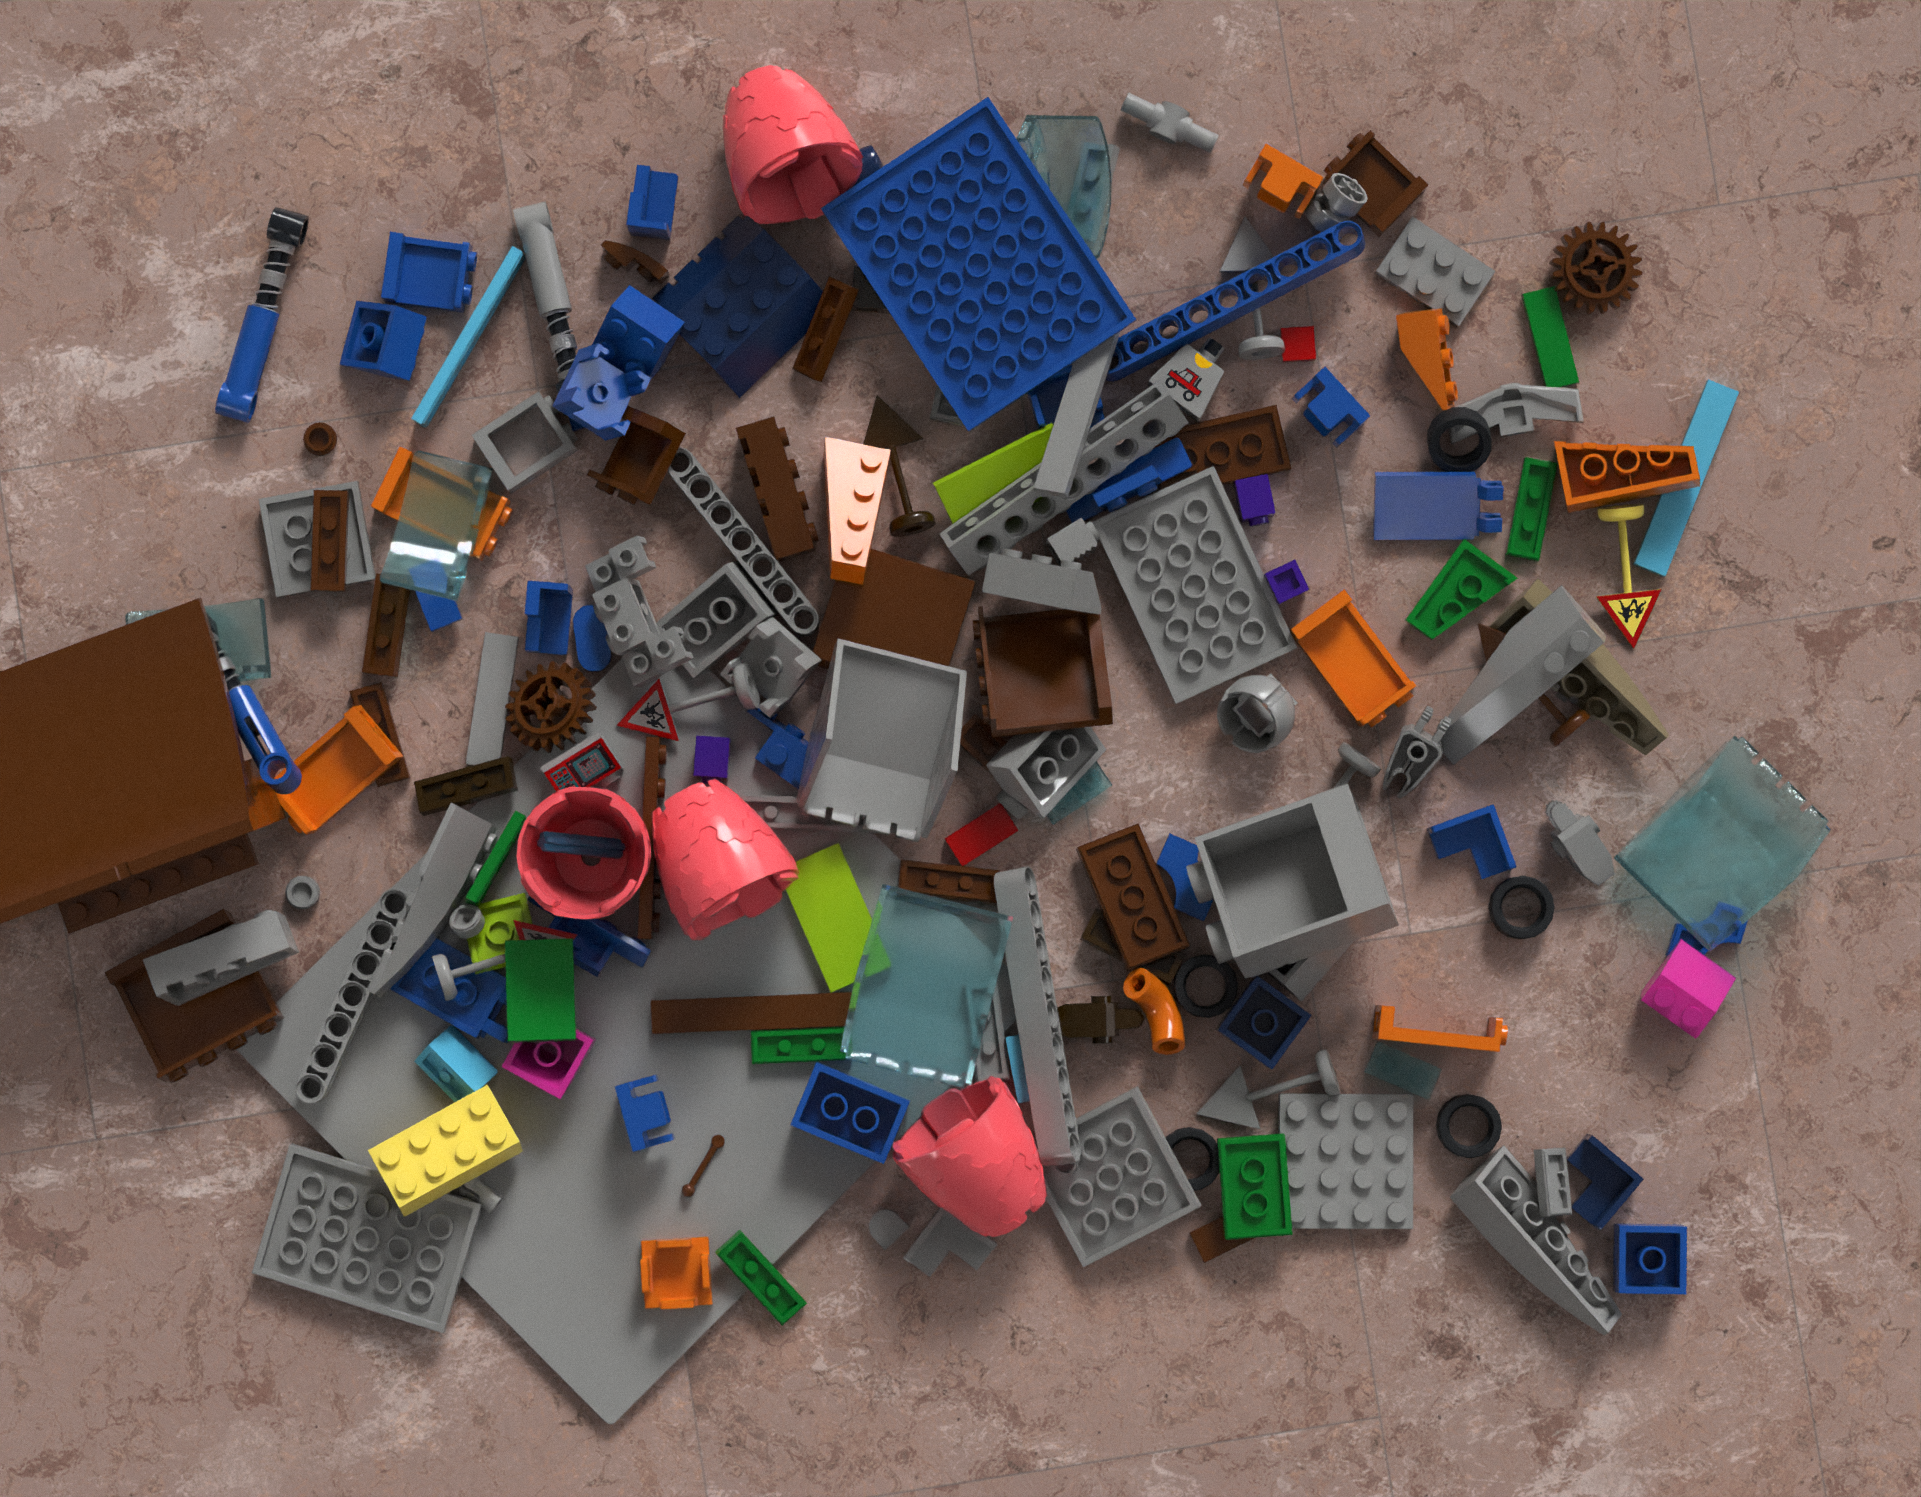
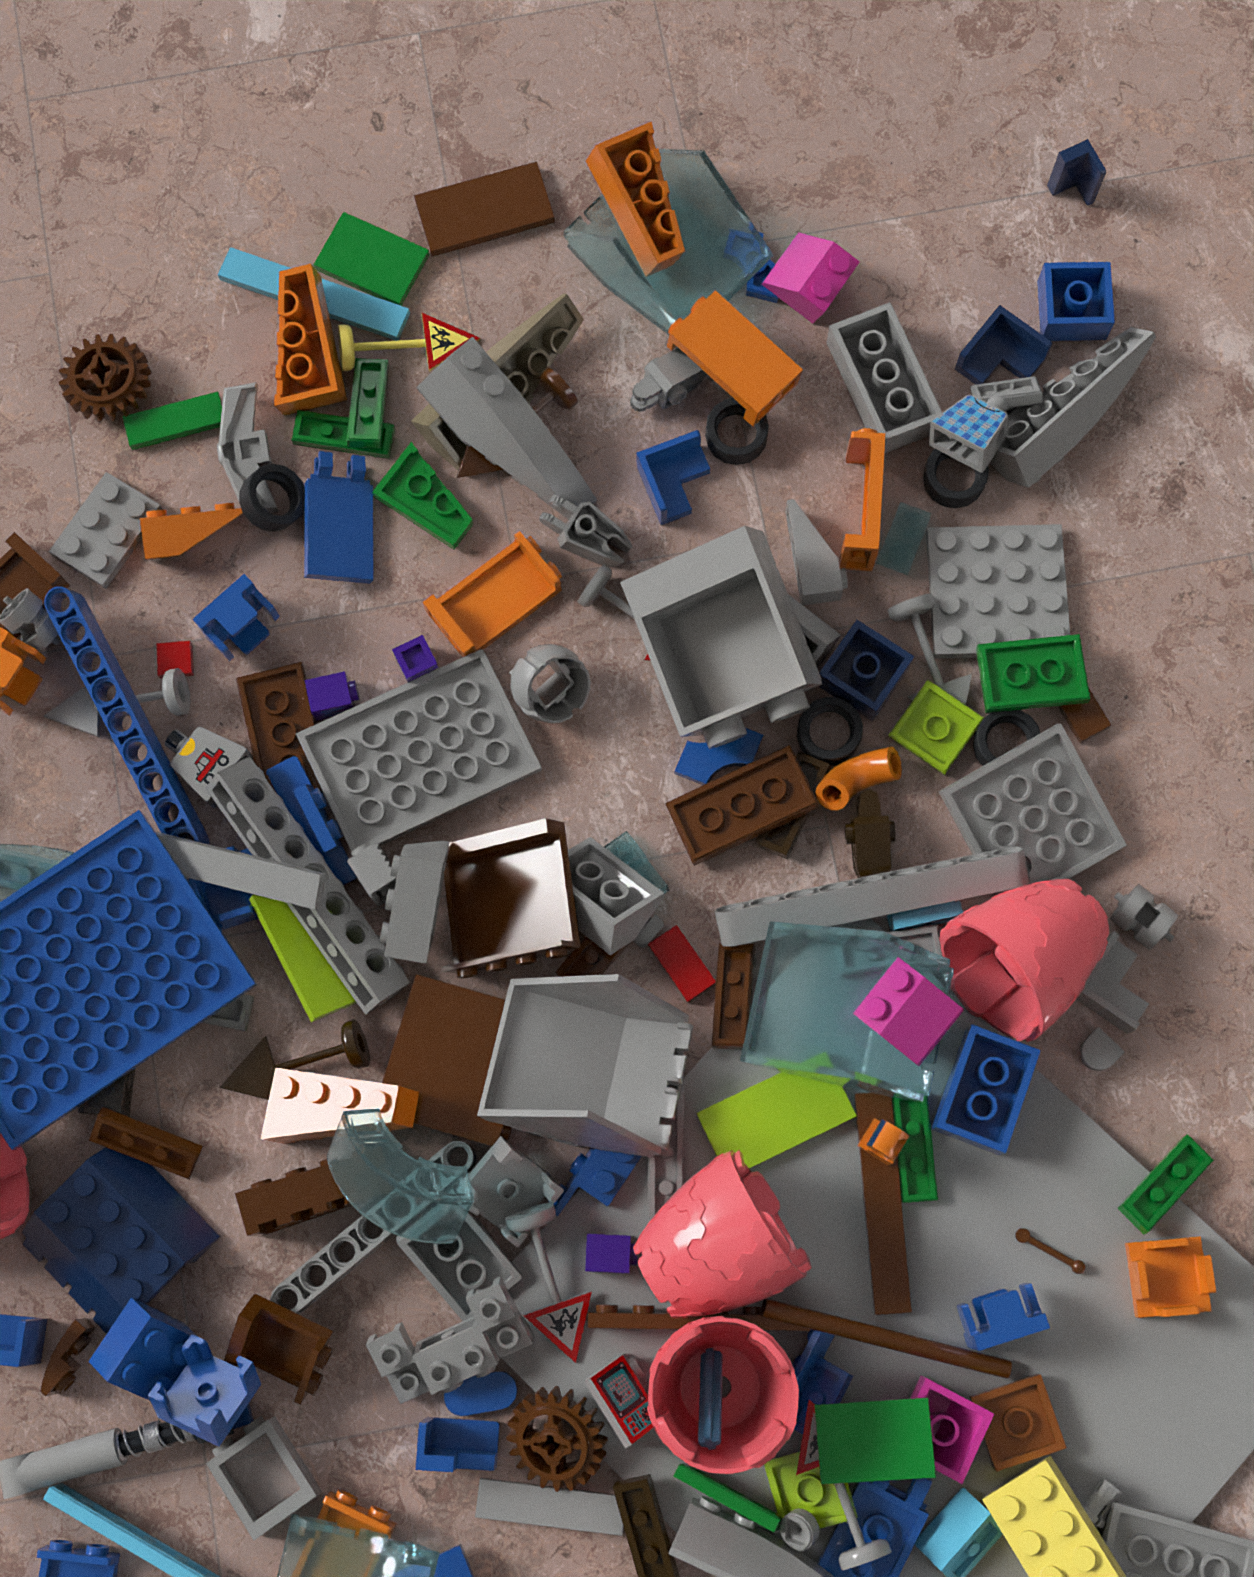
camera: 85 degrees left, 10 degrees down
(552, 1125) = (1021, 1424): none -> dark orange plate
(628, 1007) = (886, 1338): none -> reddish brown piece
(773, 561) = (392, 1188): none -> clear light blue panel
(806, 1014) = (883, 1141): none -> orange leg
(922, 1041) = (908, 1011): none -> dark pink slope
(1012, 1277) = (1144, 917): none -> light grey wheel
(1206, 1090) = (935, 727): none -> lime tile
(1375, 980) = (814, 561): none -> light grey slope
(1506, 1141) = (971, 430): none -> torso
(1561, 534) = (368, 403): none -> green tile
(1570, 1058) = (883, 376): none -> light grey brick
(1592, 905) = (735, 355): none -> orange panel
(1723, 537) = (371, 259): none -> green tile
(1774, 812) = (636, 192): none -> orange wedge
(1777, 654) = (484, 209): none -> reddish brown tile
(1799, 1268) = (1079, 168): none -> dark blue panel

